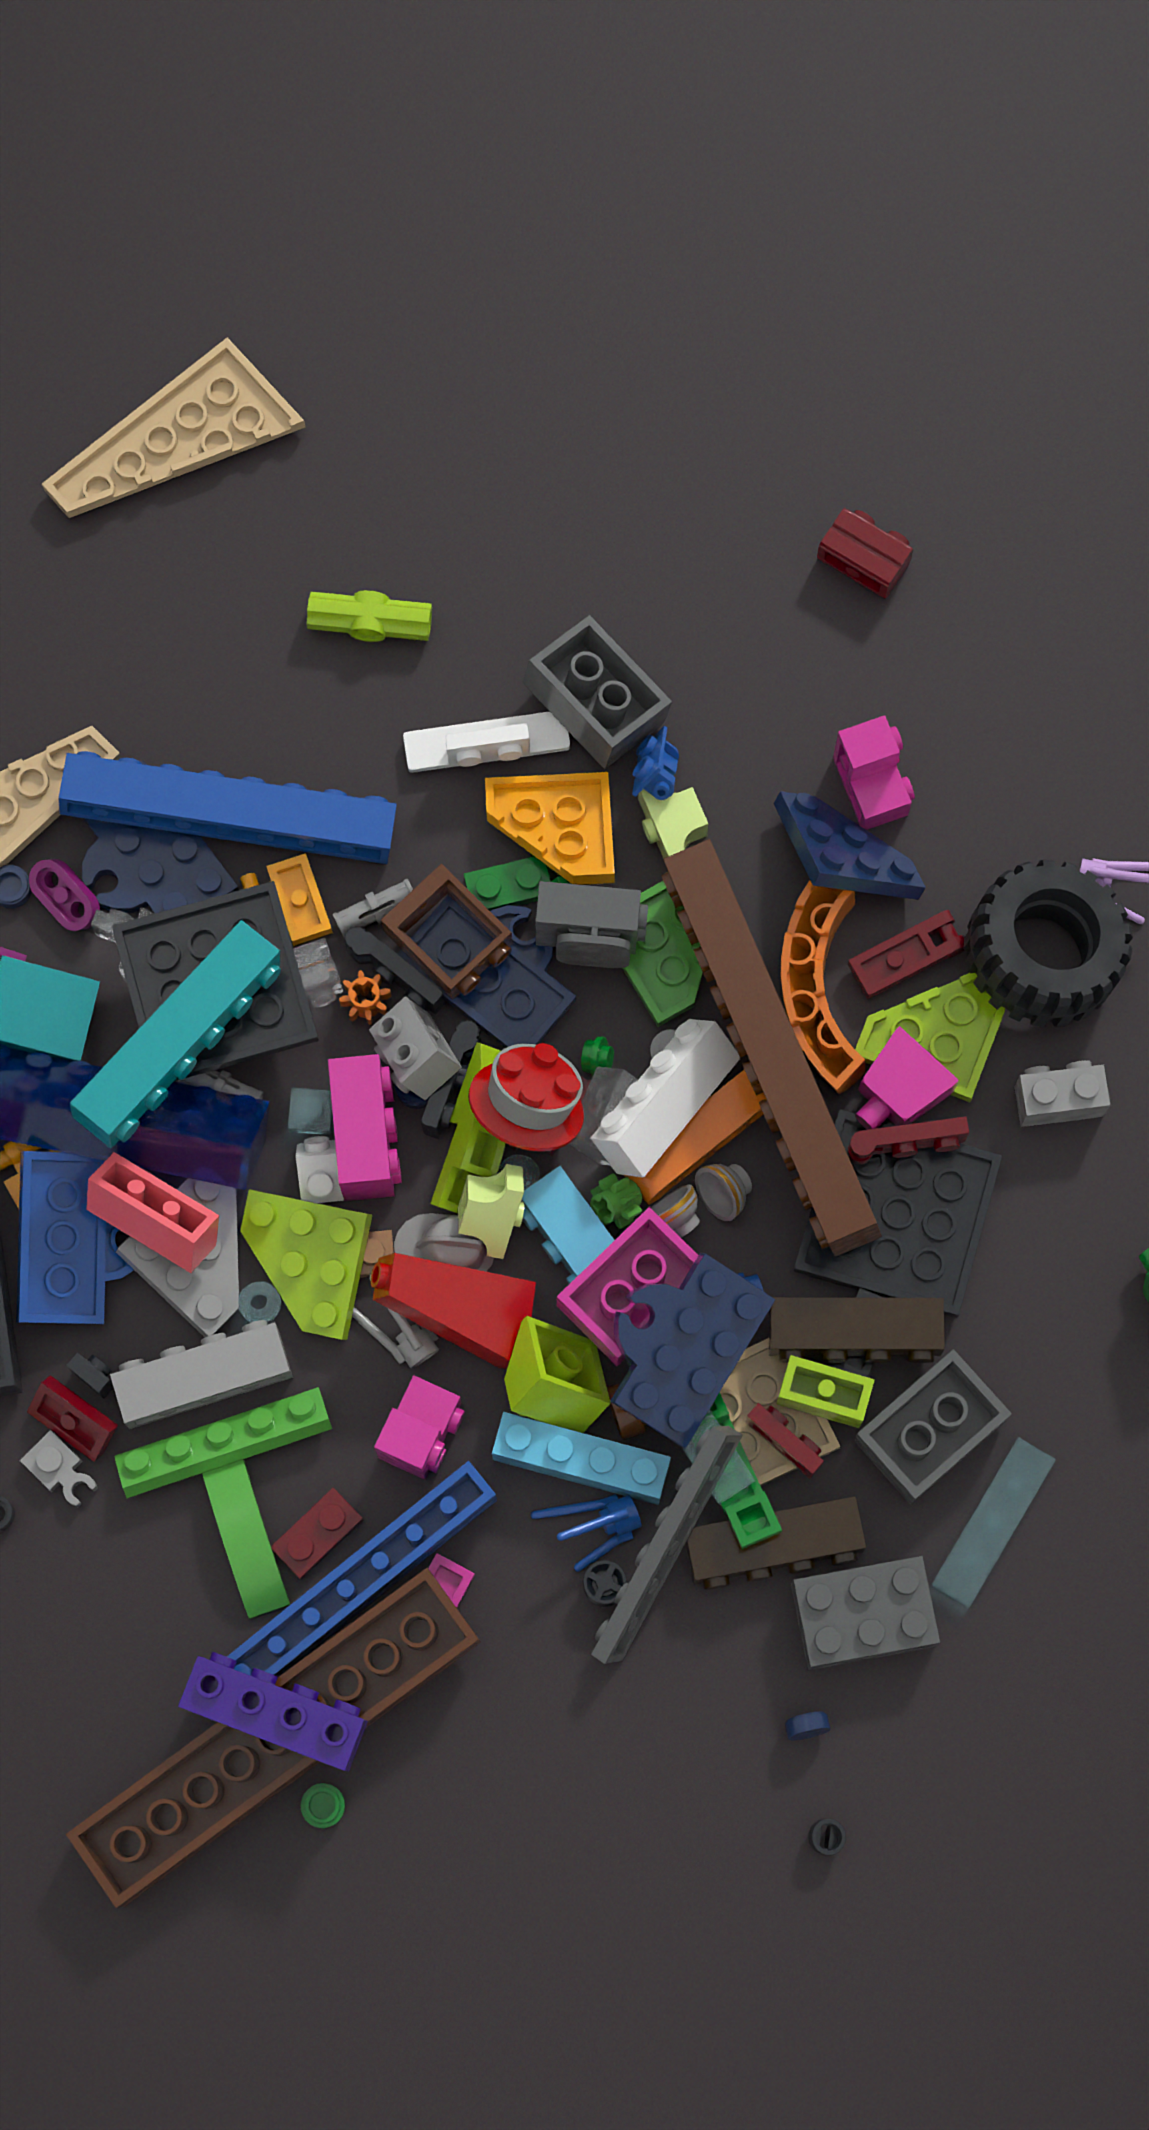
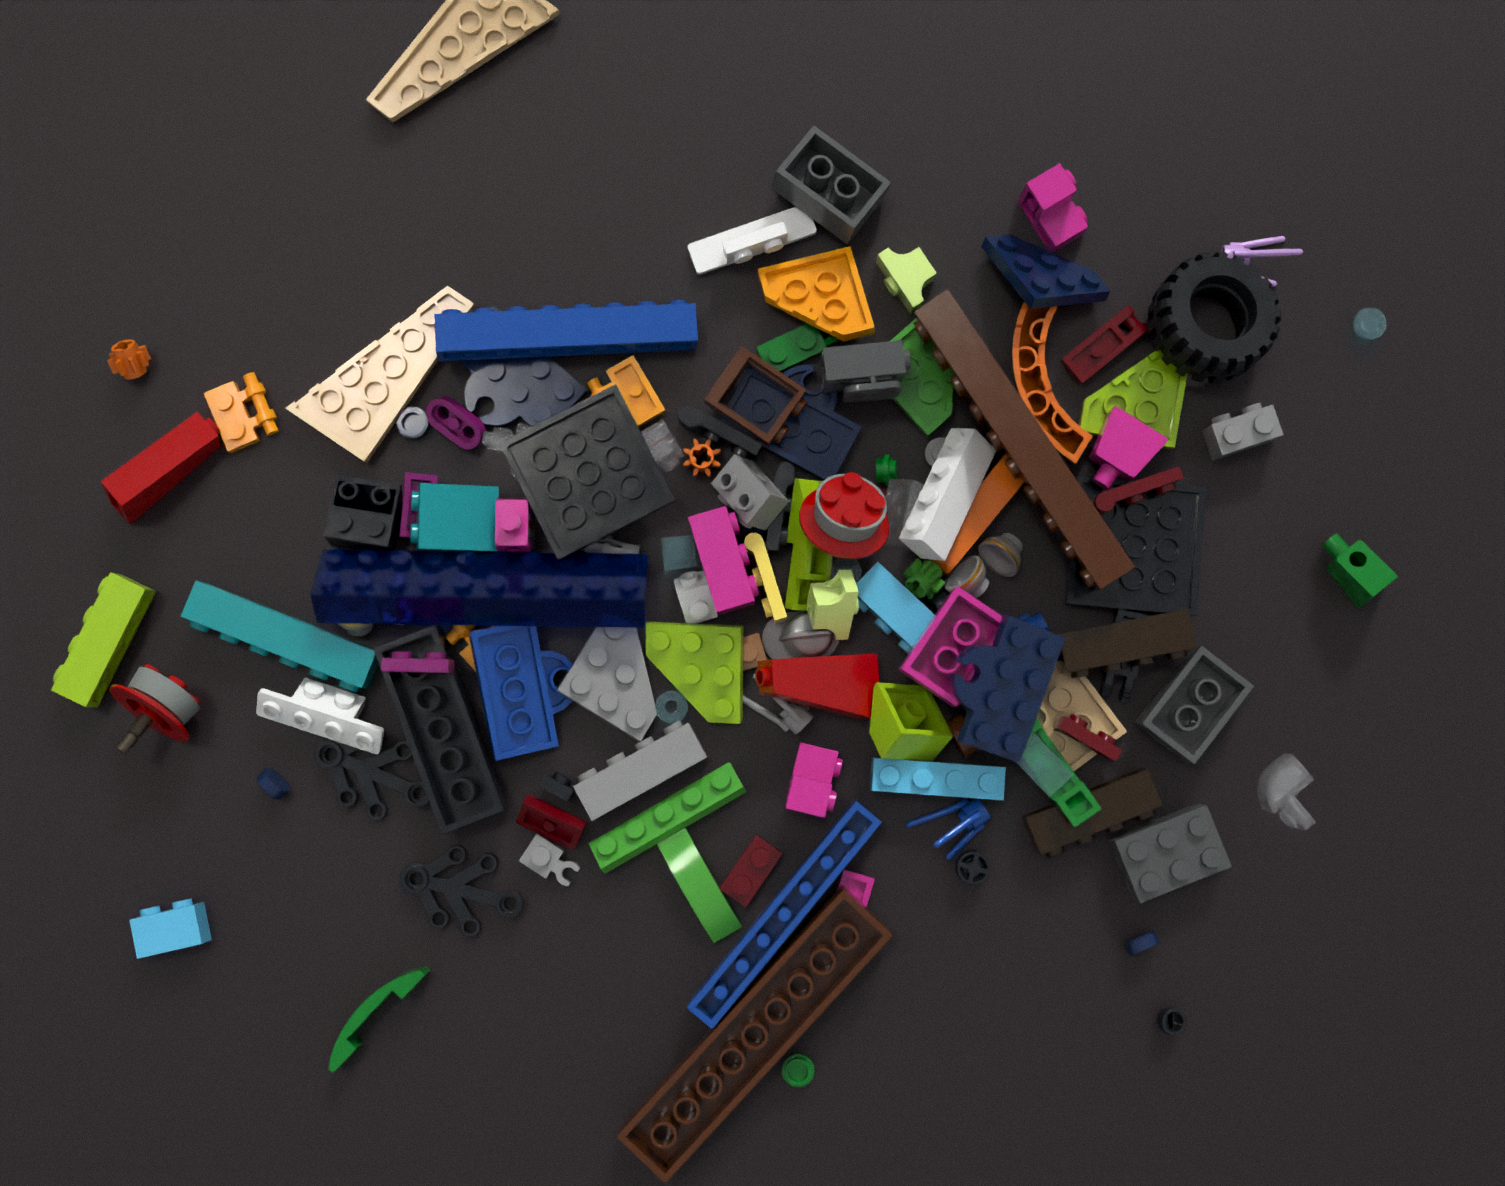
camera: 10 degrees left, 10 degrees up
(106, 1028) = (514, 525): none -> dark pink torso
(152, 1212) = (579, 660): coral brick -> none
(176, 1035) = (569, 521): teal brick -> none
(273, 1713) = (753, 1022): dark purple brick -> none
(350, 916) = (694, 386): light grey pin -> none
(369, 616) = (641, 157): lime piece -> none
(413, 1160) = (765, 577): none -> light yellow plate
(656, 766) = (887, 235): blue hinge -> none
(659, 1556) = (1020, 822): dark grey plate -> none
(825, 1391) = (1112, 696): lime brick -> none
(865, 551) = (1013, 32): dark red brick -> none
(993, 1522) = (1248, 763): clear light blue tile -> none
(1025, 1557) = (1278, 787): none -> clear brick

